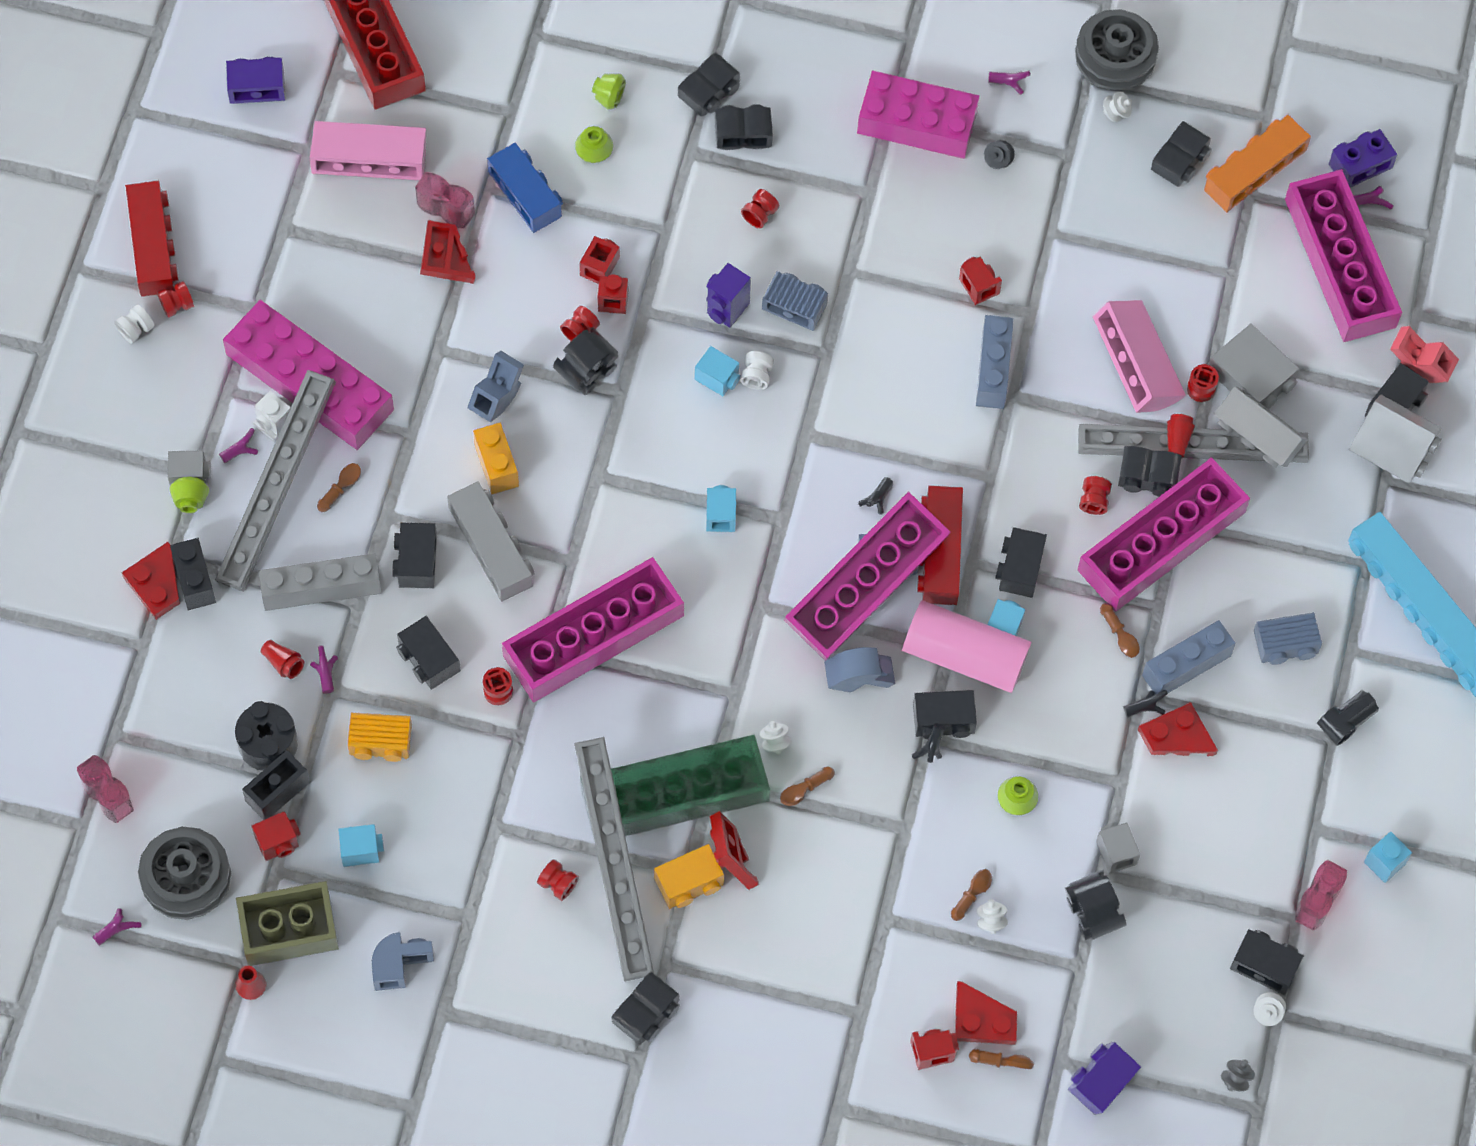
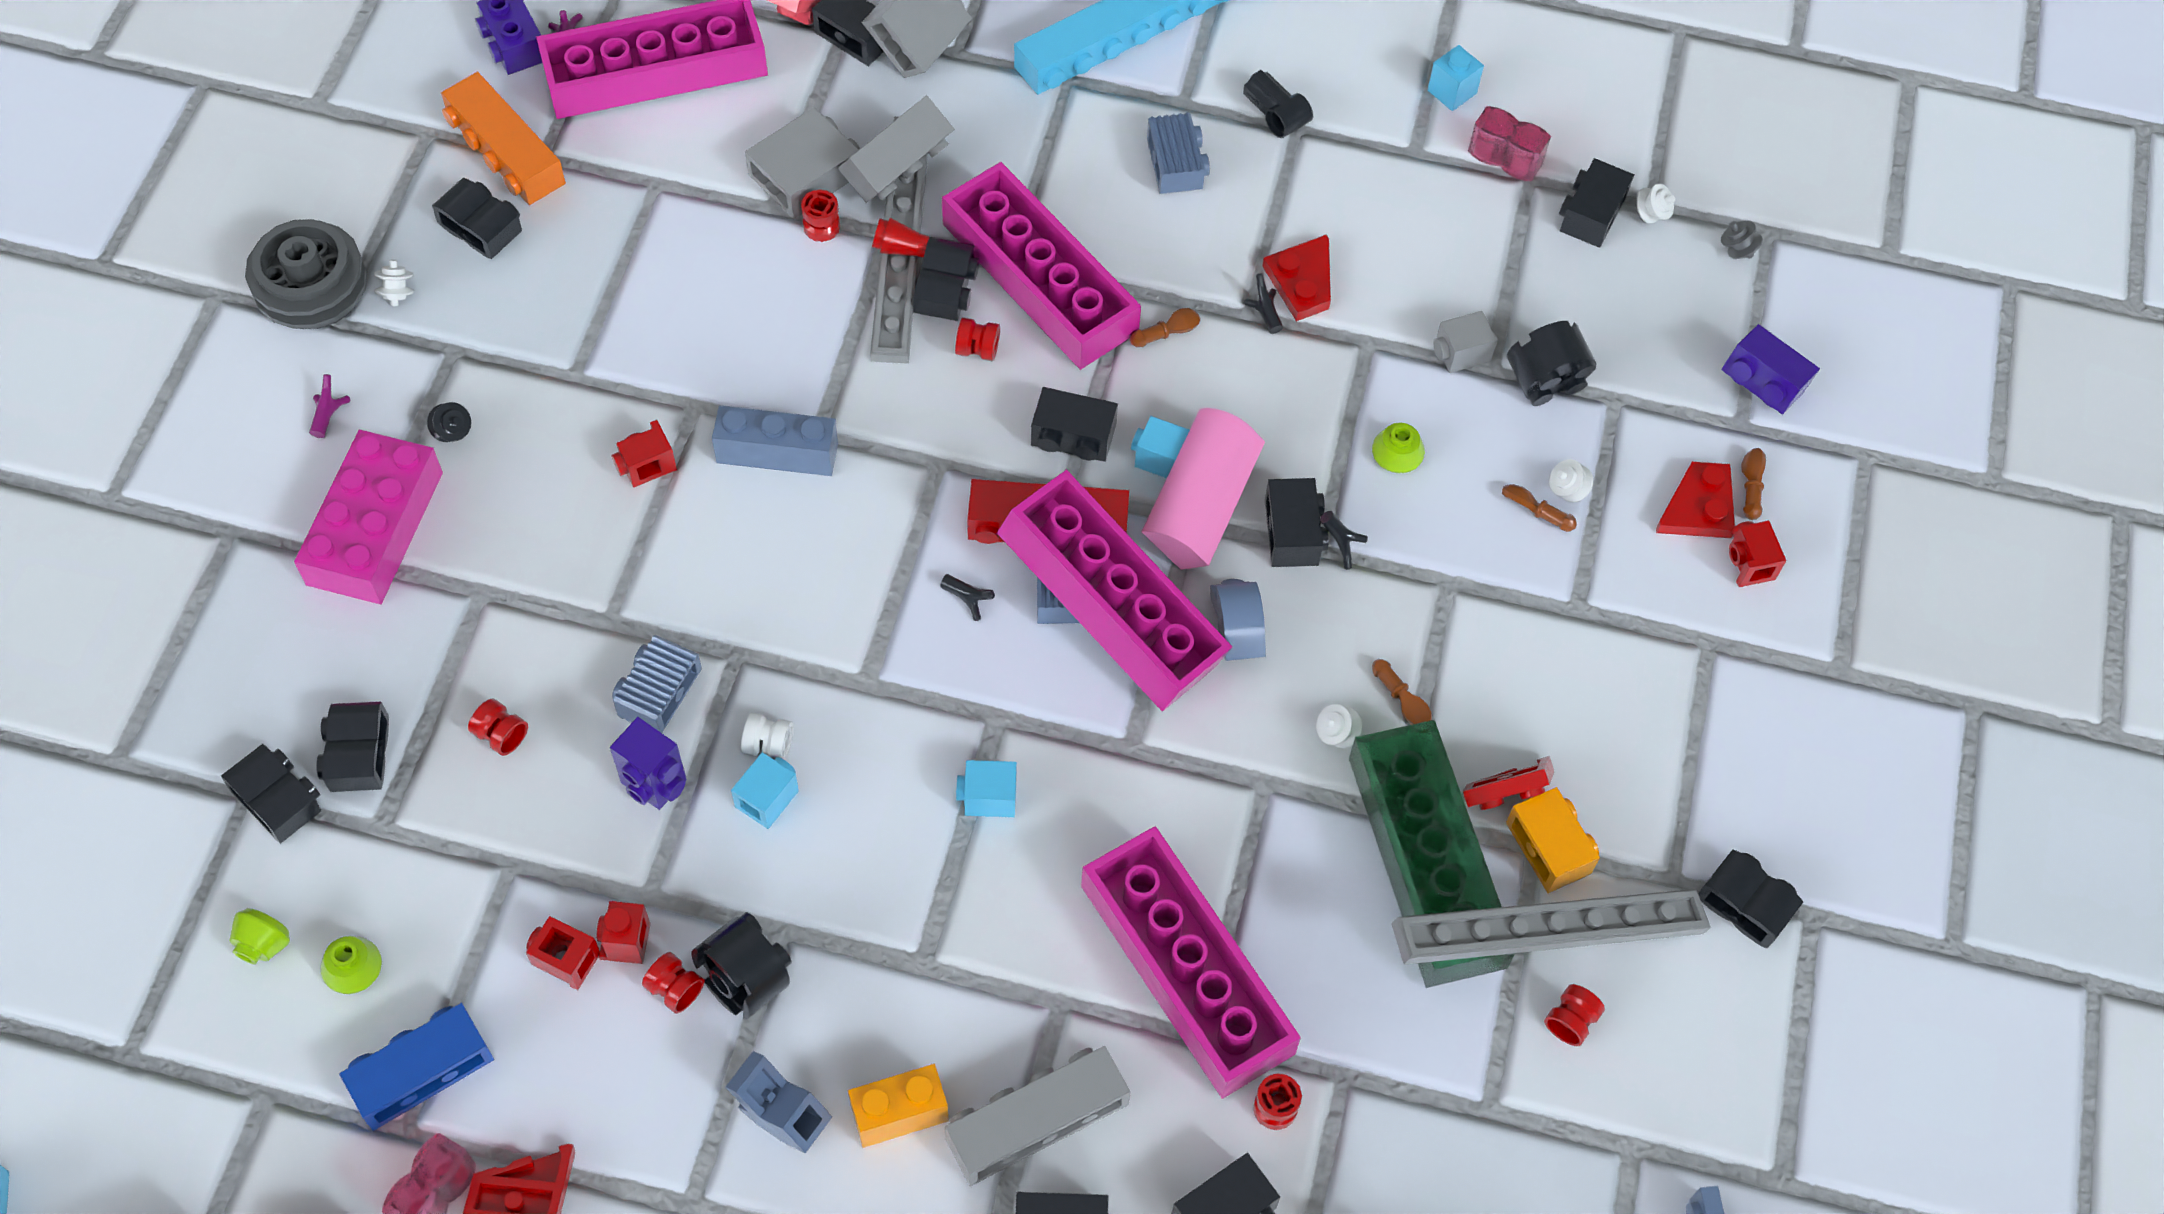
camera: 90 degrees left, 5 degrees down
(1138, 355) = (776, 281): bright pink brick -> none
(1189, 658) = (1209, 252): sand blue brick -> none

